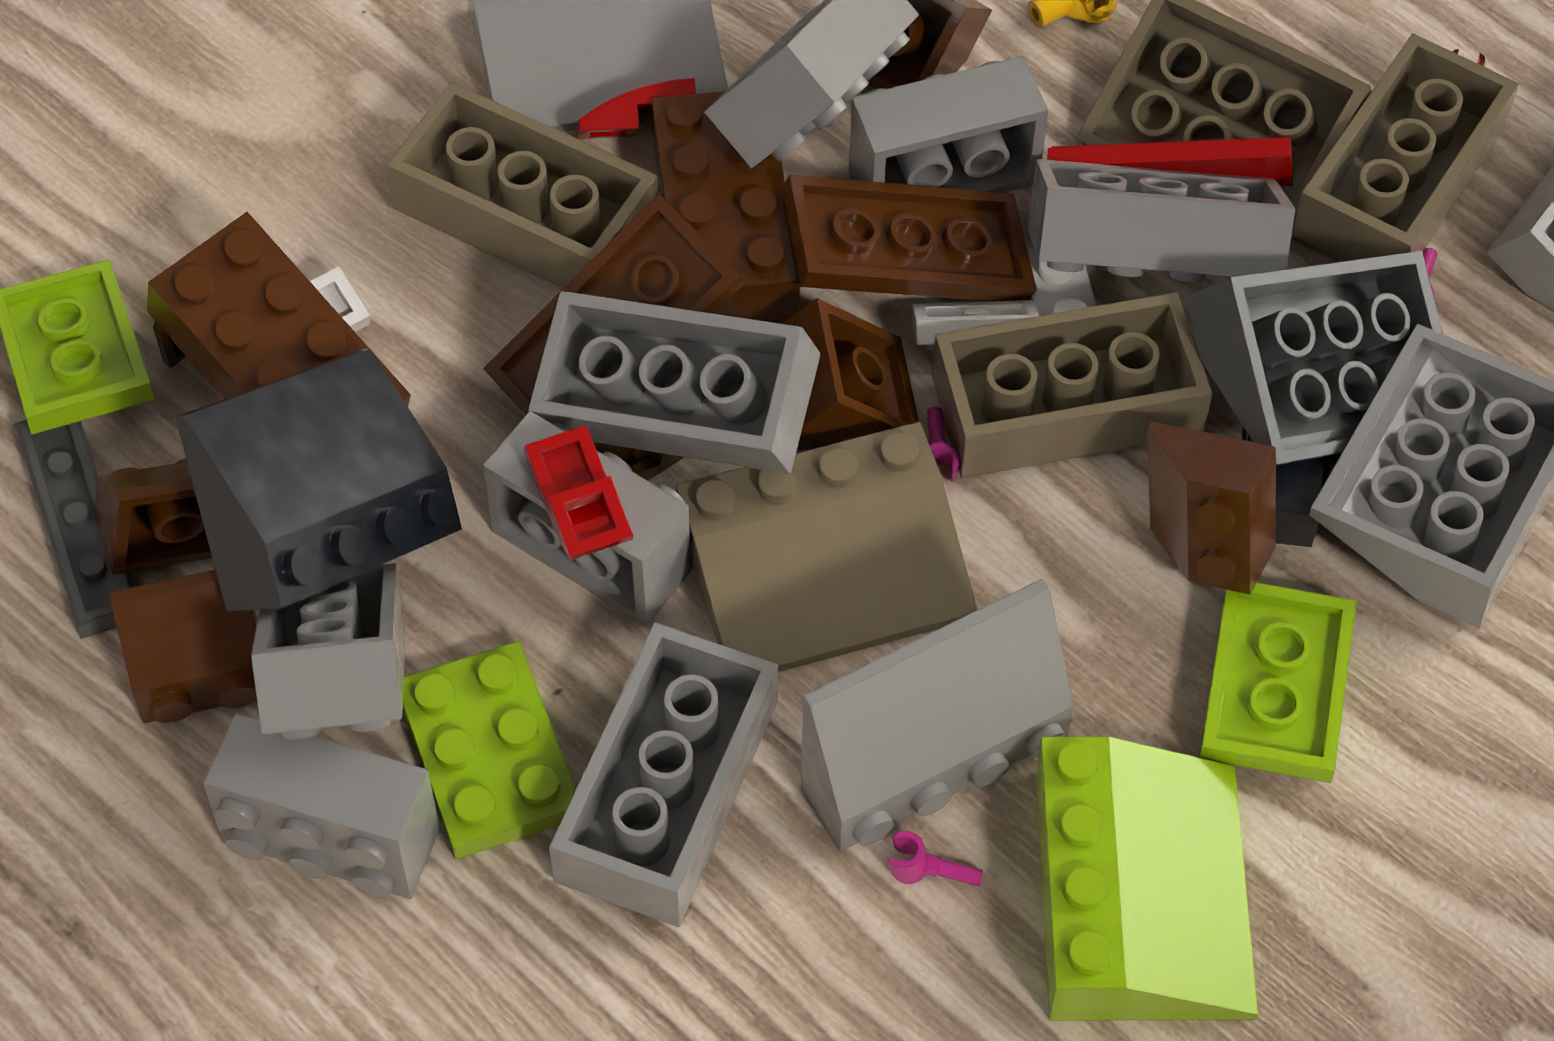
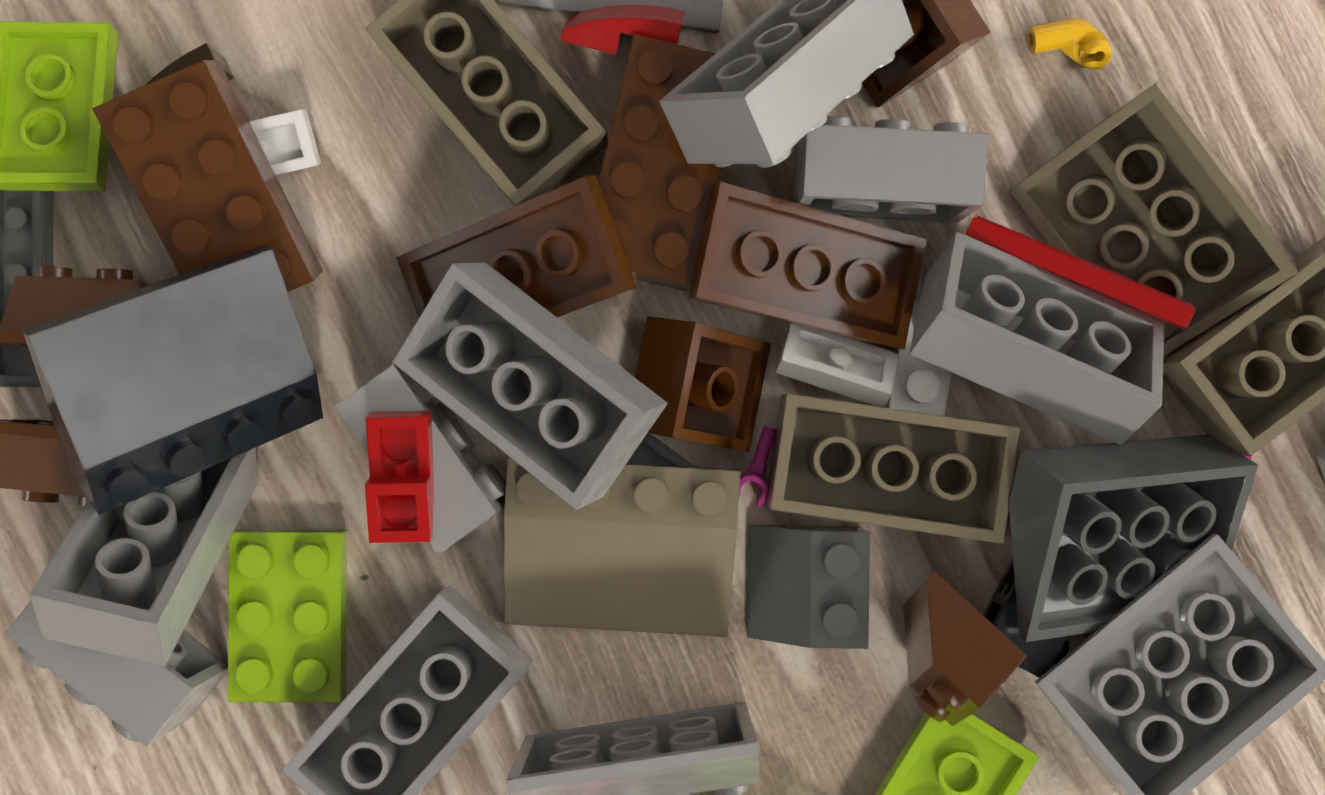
camera: 20 degrees right, 30 degrees up
(1041, 520) = (809, 585): none -> dark grey slope

